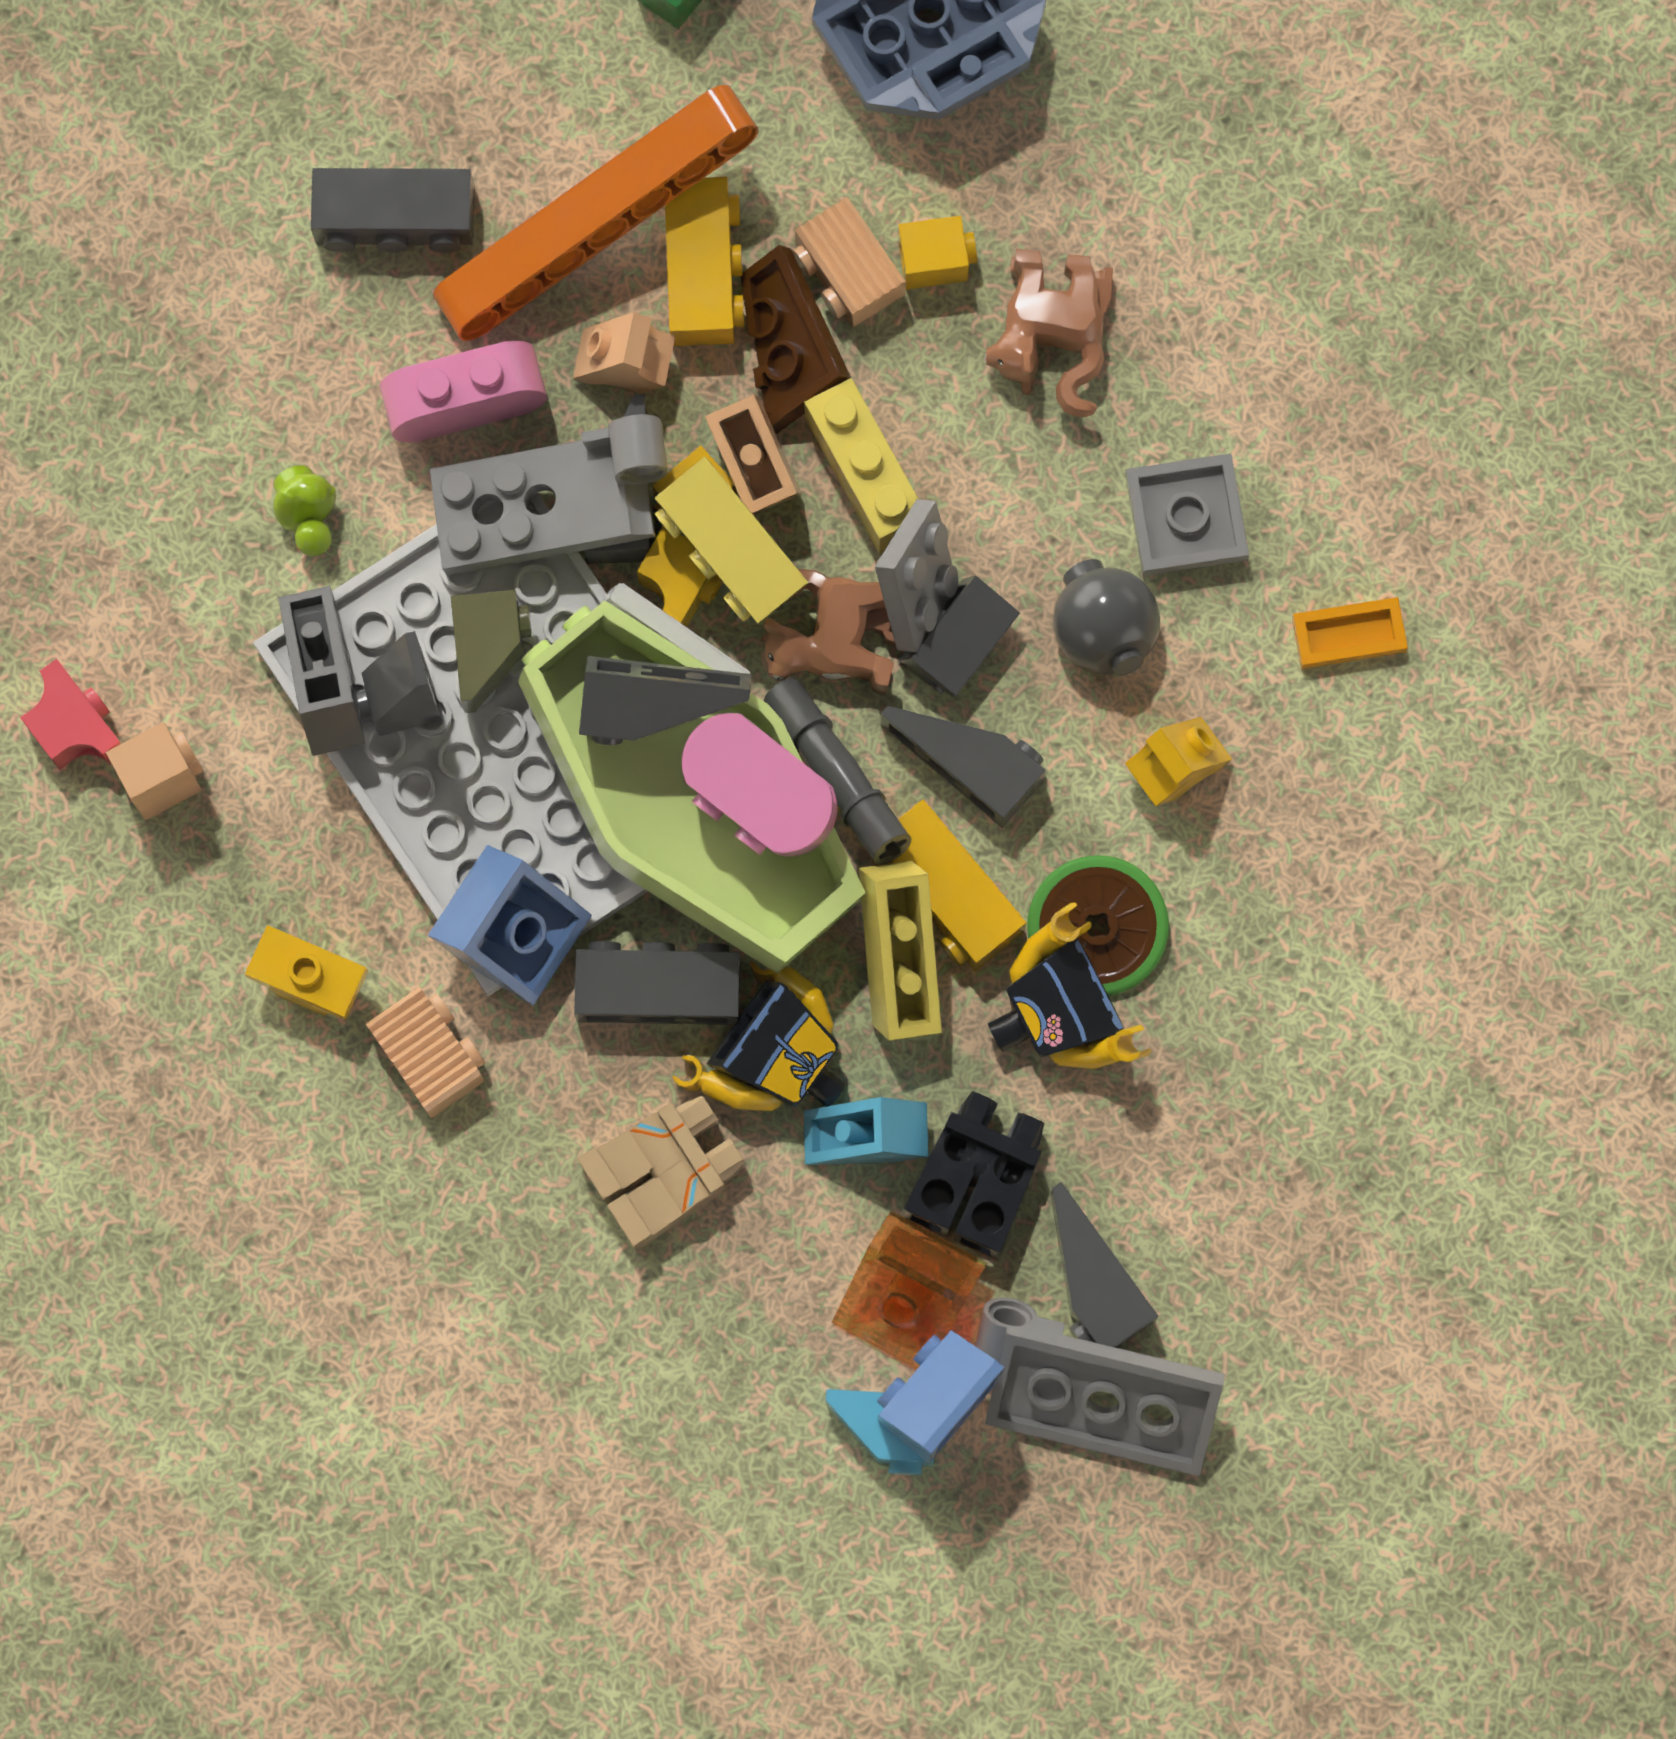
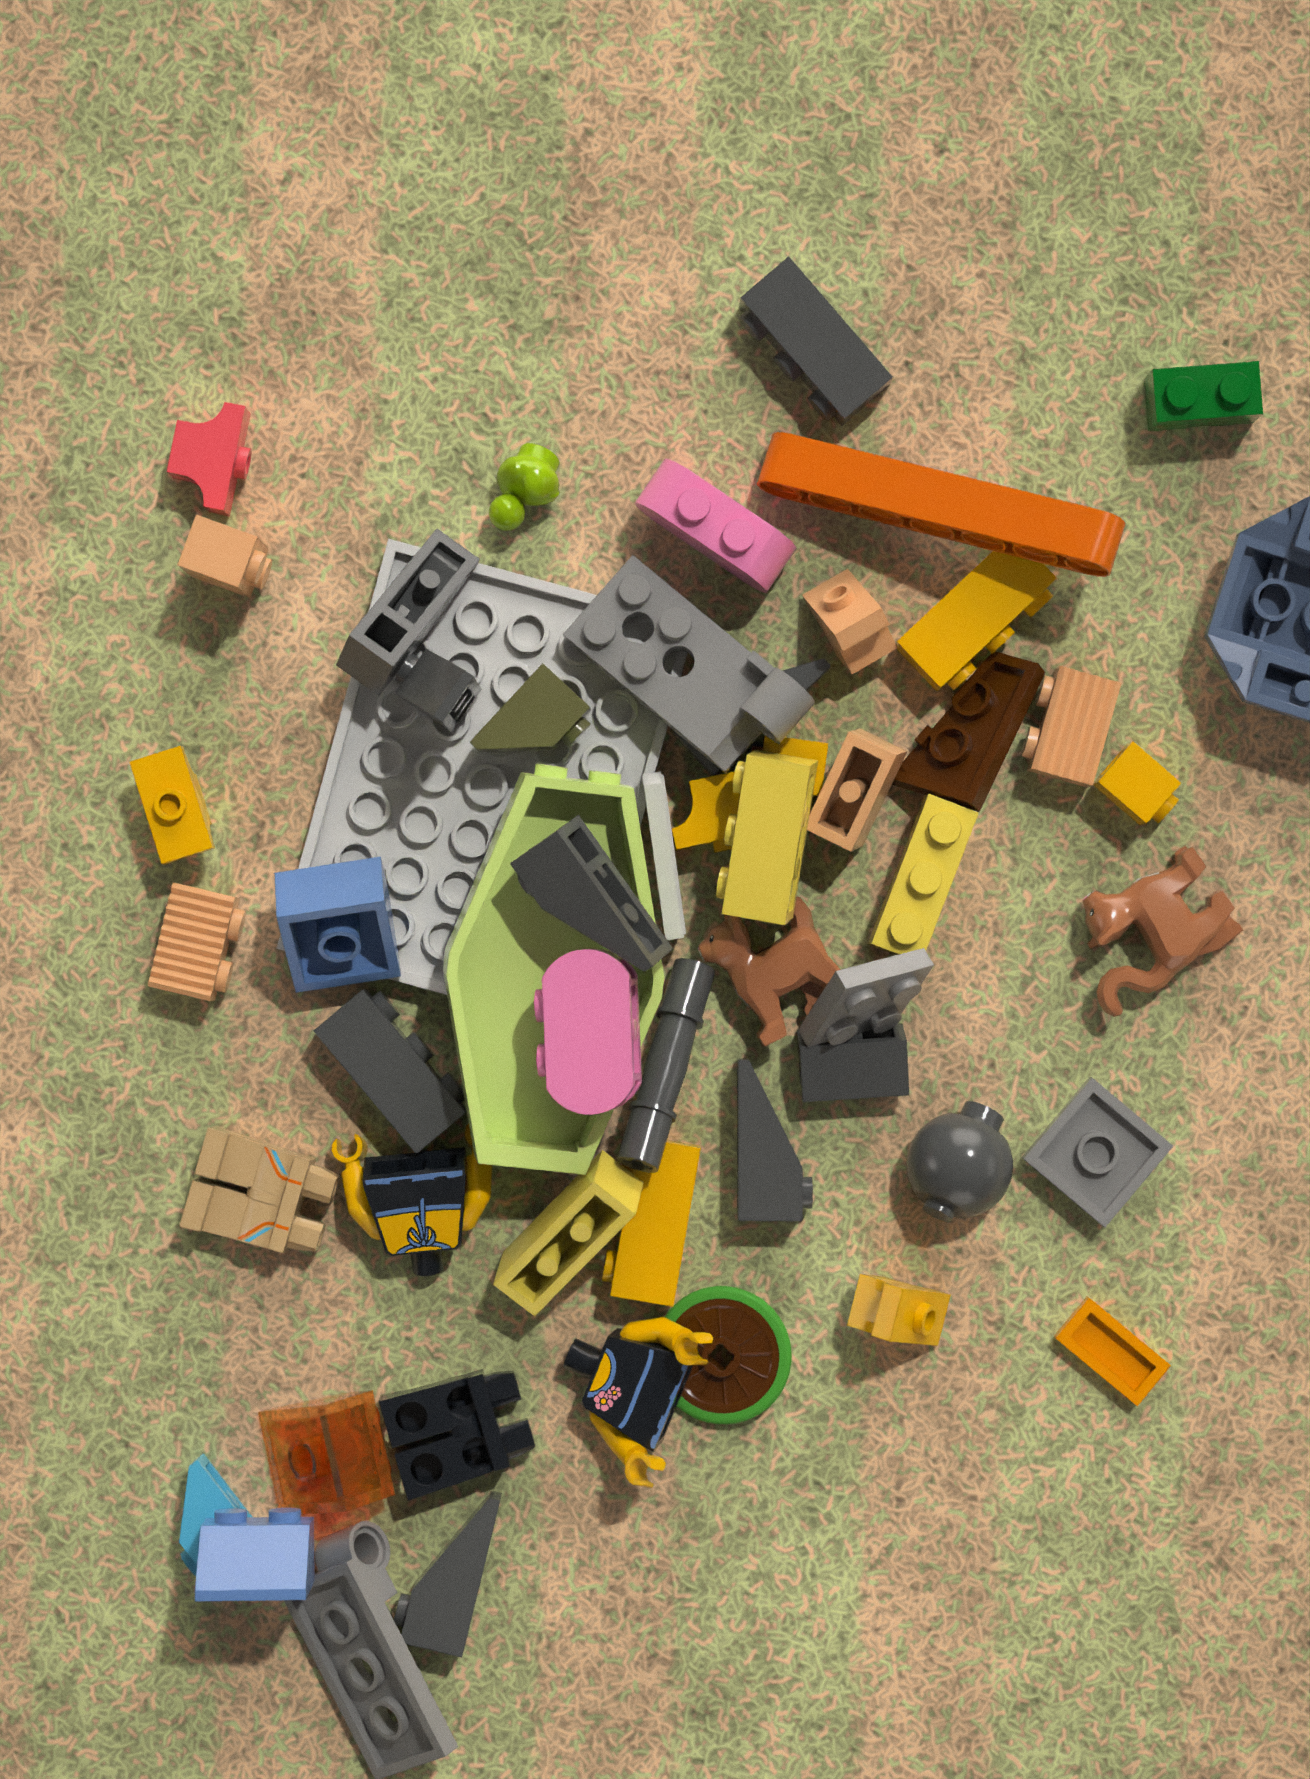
camera: 45 degrees right, 10 degrees up
(866, 1132) = (416, 1320): medium azure slope -> none

